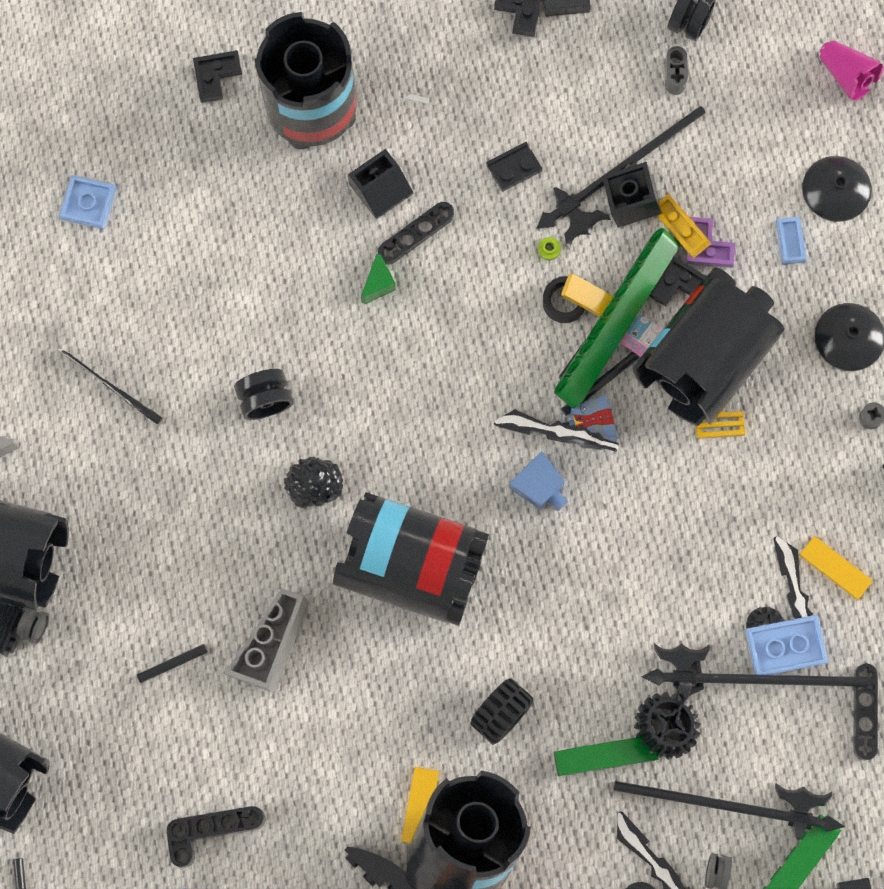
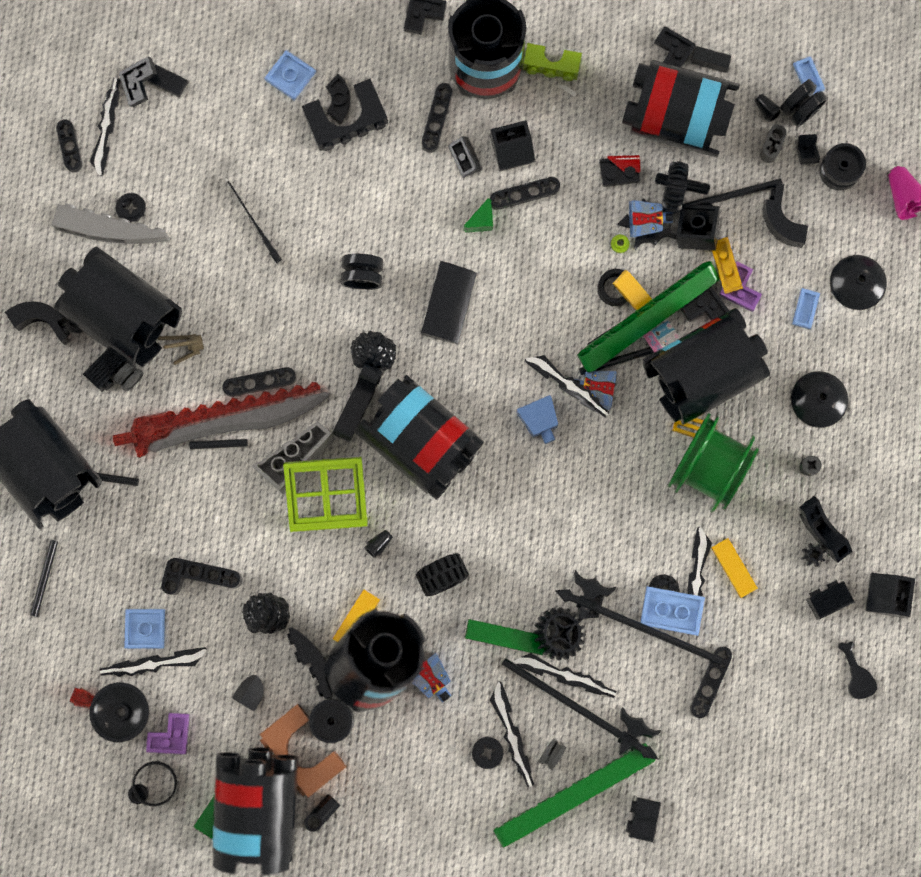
camera: 20 degrees right, 5 degrees up
(69, 753) = (118, 479): none -> black bar
(93, 669) = (159, 425): none -> piece
(94, 554) = (193, 342): none -> dark tan plant
(157, 206) = (339, 99): none -> black tile
(160, 252) = (328, 134): none -> black arch
(190, 567) = (259, 381): none -> black beam
(279, 186) = (438, 118): none -> black beam
(310, 843) = (266, 613): none -> black hair
(320, 548) = (357, 403): none -> black beam
(329, 218) = (465, 156): none -> black slope
(339, 702) = (327, 521): none -> lime window
(379, 392) = (448, 303): none -> black slope
(405, 74) = (566, 67): none -> lime arch
(410, 706) = (378, 543): none -> black cone
(517, 152) = (626, 161): none -> red sticker
(543, 840) = (433, 679): none -> torso
(556, 67) = (680, 107): none -> black brick
(568, 206) = (647, 218): none -> torso
(587, 158) = (675, 186): none -> black gear
(591, 153) = (694, 186): none -> black axle
(653, 33) = (767, 107): none -> black cone
(694, 773) = (566, 675): none -> black sword
(717, 62) = (807, 149): none -> black bracket
(720, 158) = (780, 227): none -> black arch
(765, 66) = (842, 166): none -> black wheel
(765, 455) = (714, 464): none -> green wheel

